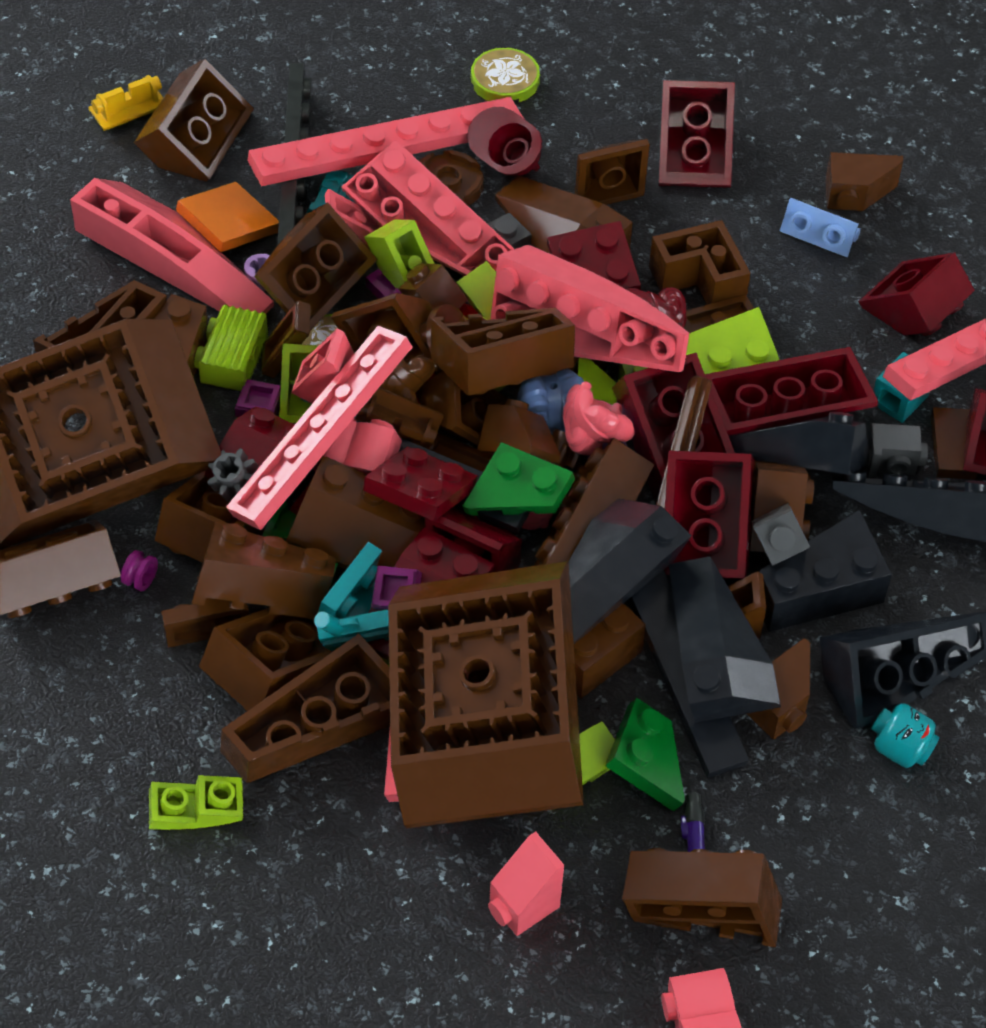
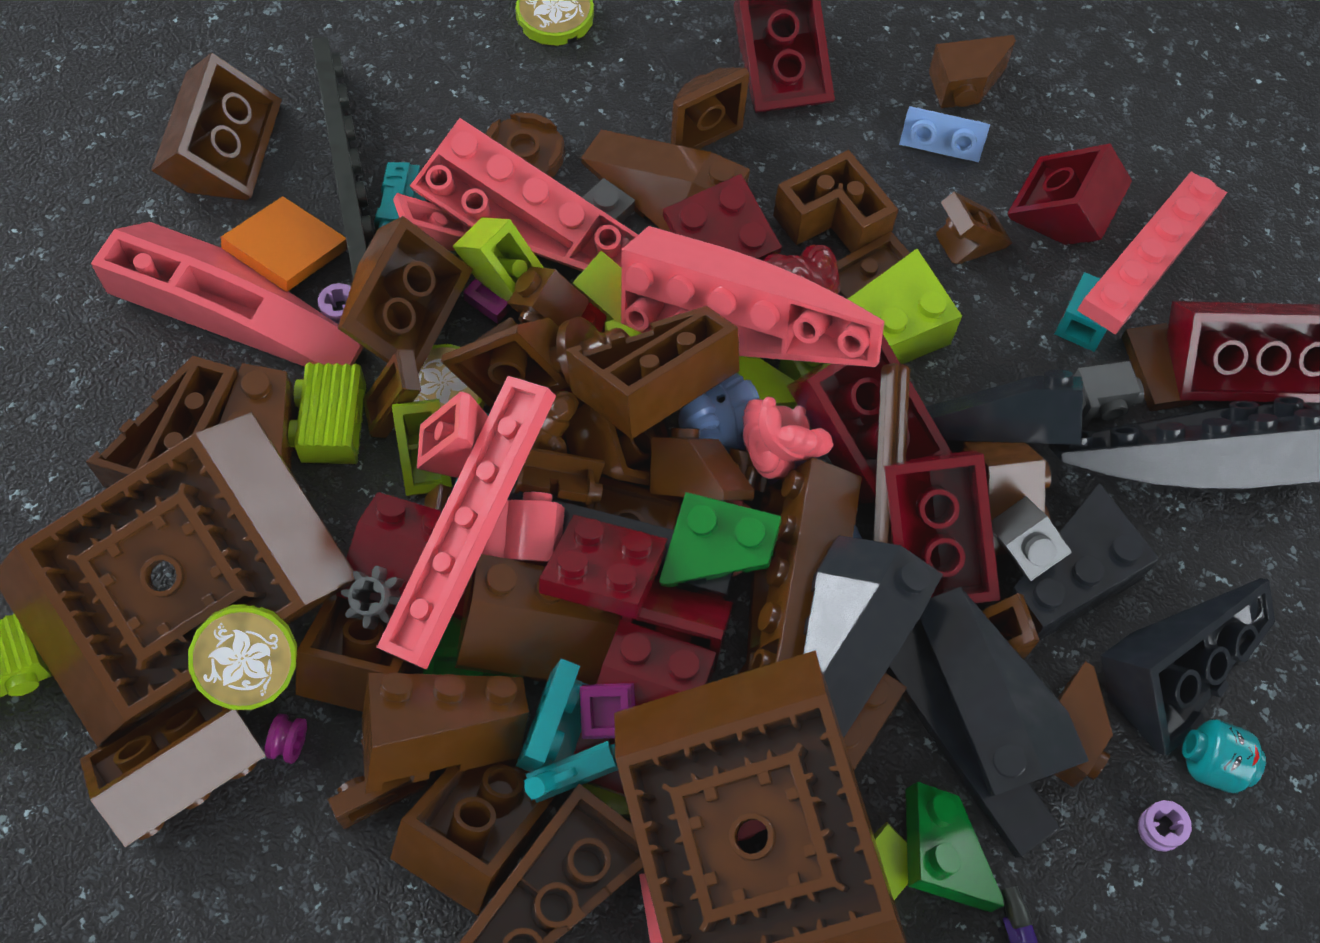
camera: 15 degrees left, 10 degrees up
(119, 107) = (125, 127): yellow hinge -> none
(122, 490) = (242, 657): none -> tile
(260, 395) = (375, 472): magenta tile -> none
(362, 144) = (430, 121): coral plate -> none
(505, 141) = (579, 92): dark red piece -> none
(790, 390) = (985, 348): dark red slope -> none
(818, 305) = (970, 230): none -> reddish brown slope
(839, 790) = (1176, 814): none -> lavender bush

